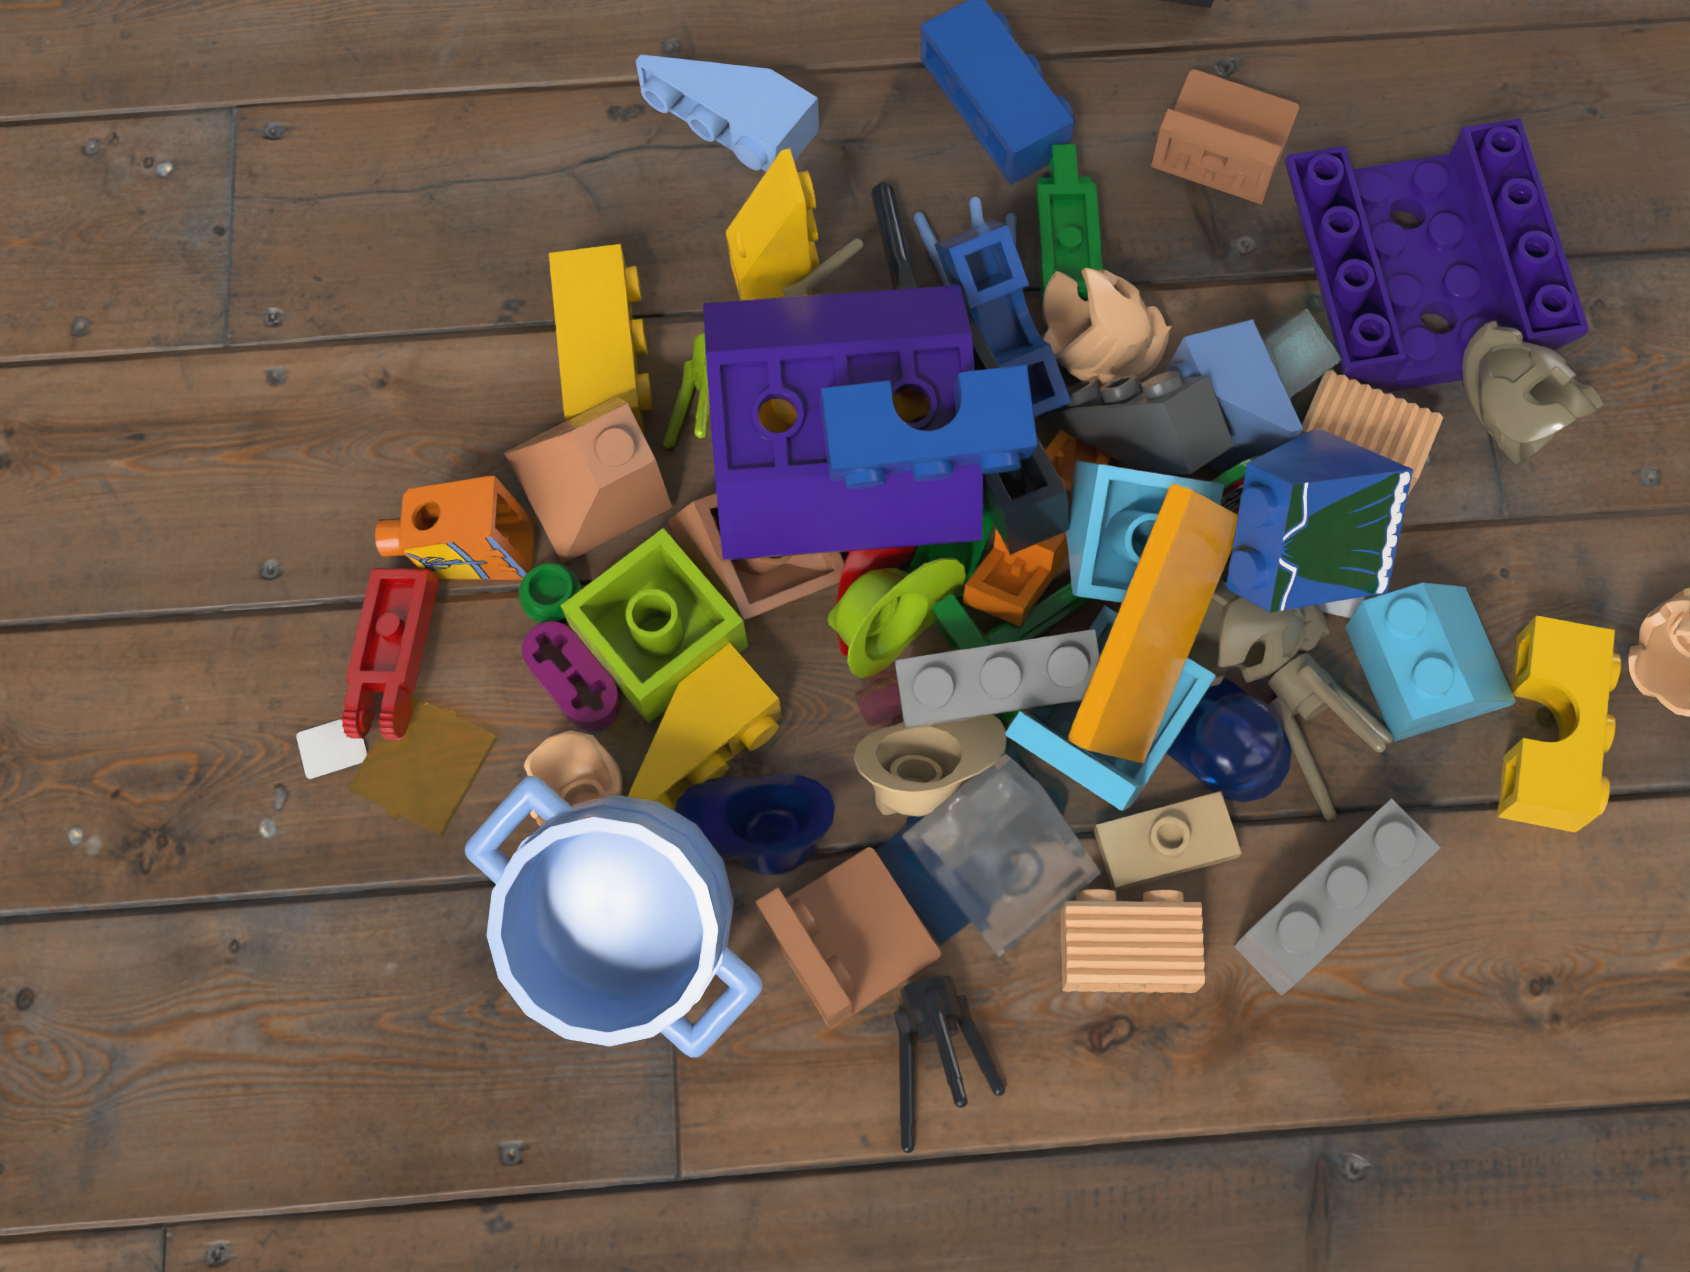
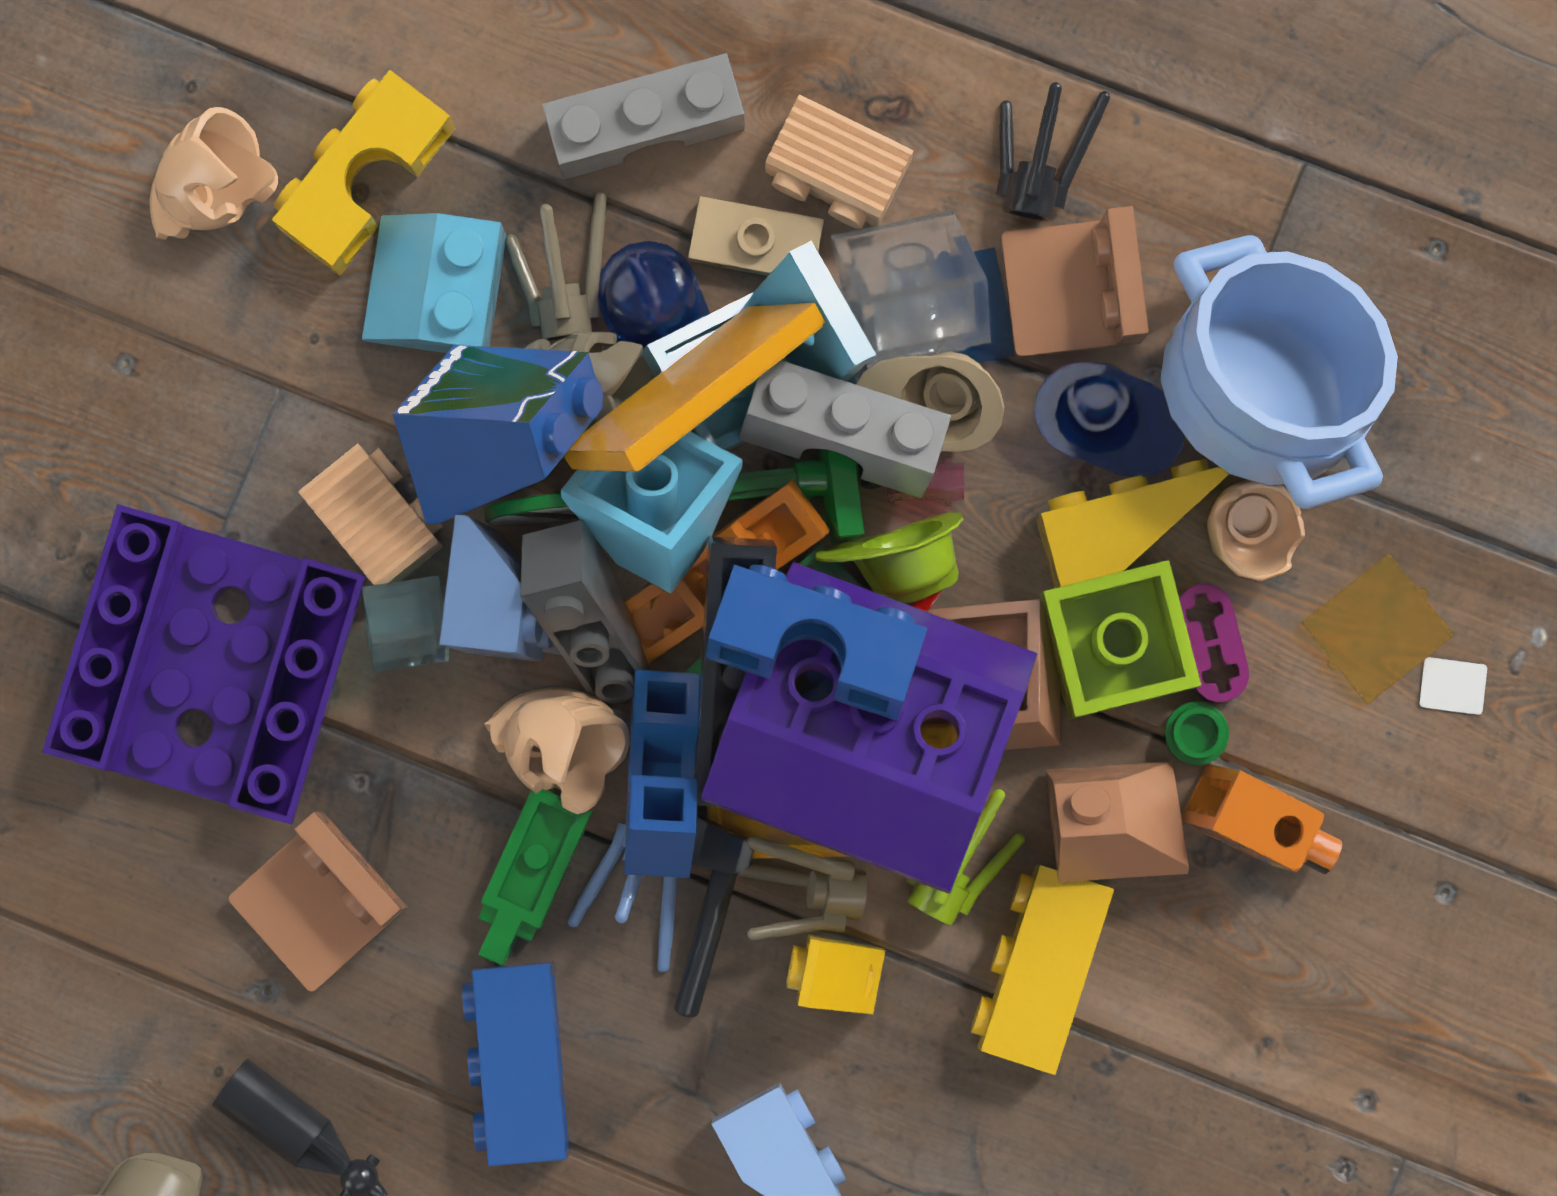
camera: 160 degrees left, 15 degrees up
(388, 650) = (1367, 745): red hinge -> none
(1521, 390) = (209, 480): dark tan helmet -> none

